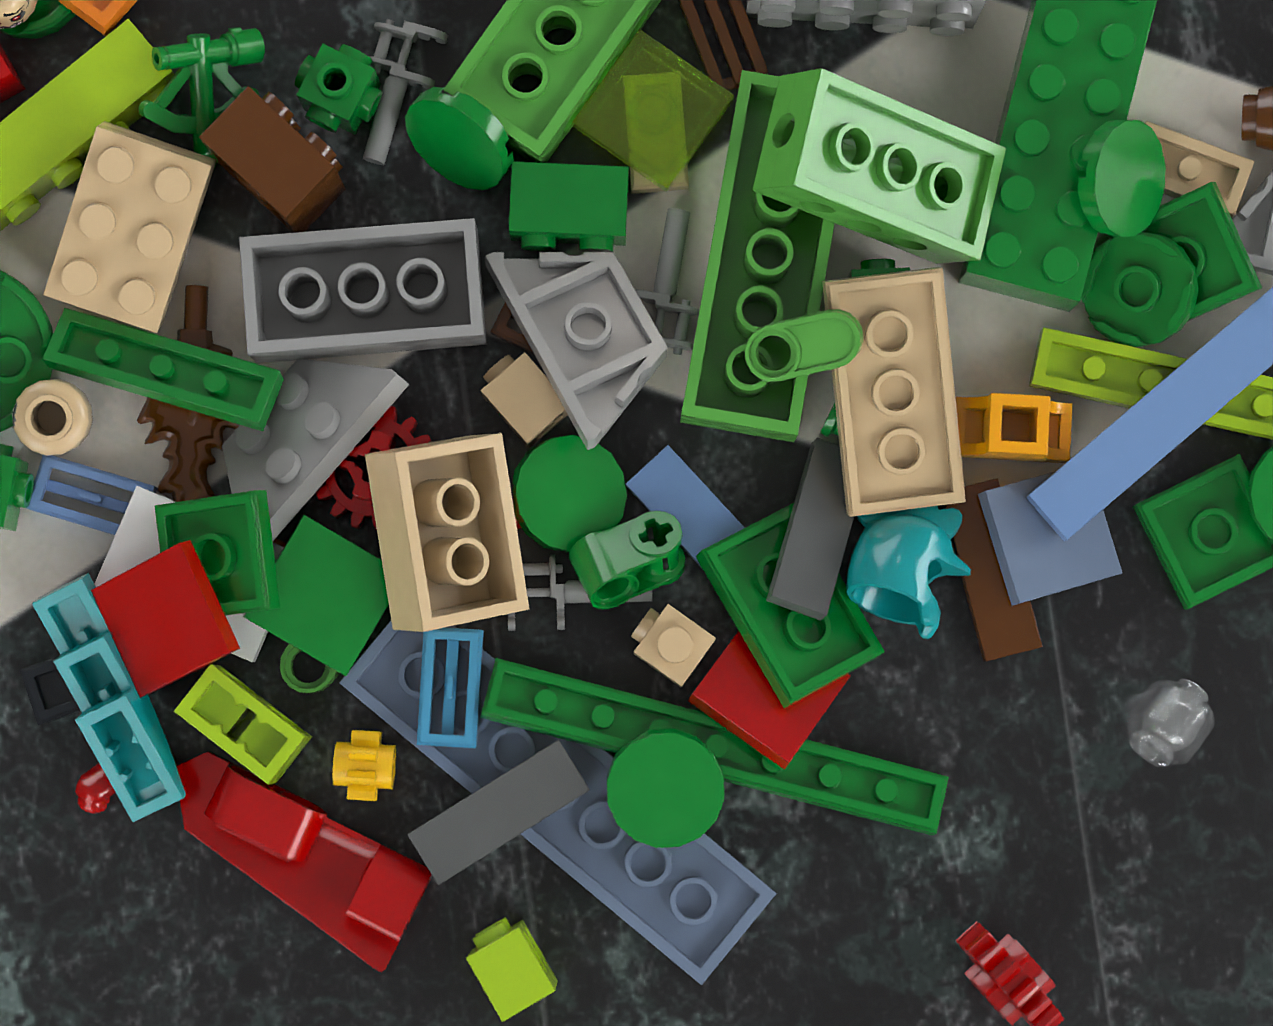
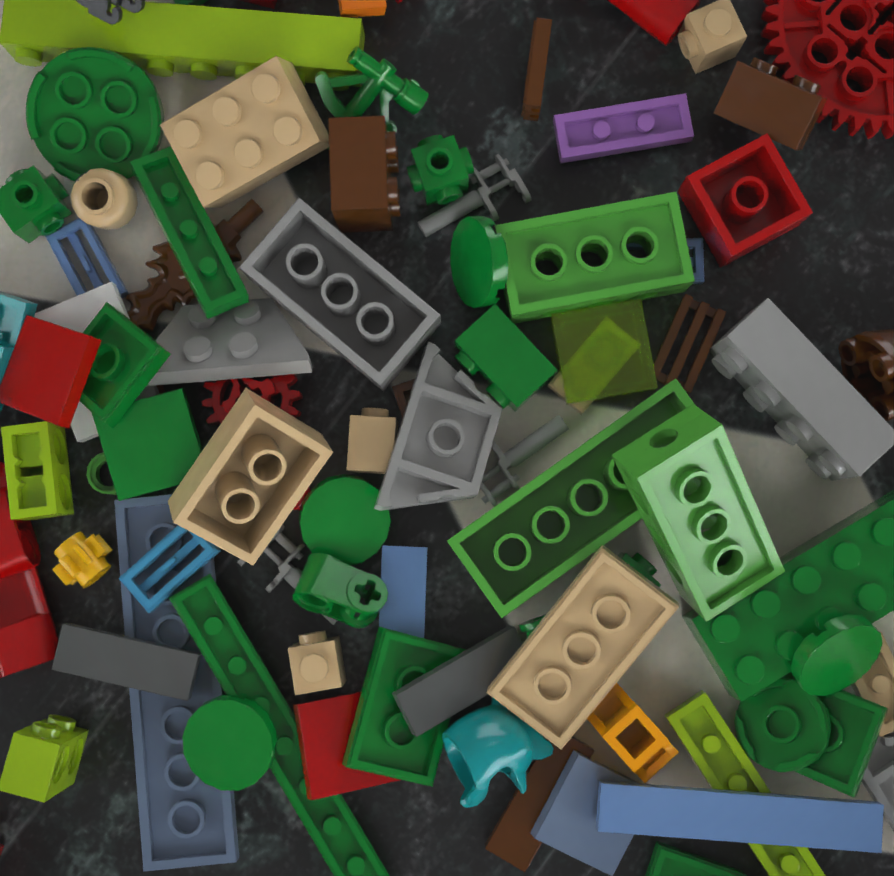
camera: 55 degrees right, 0 degrees up
(816, 343) = (563, 578): bright green piece -> none

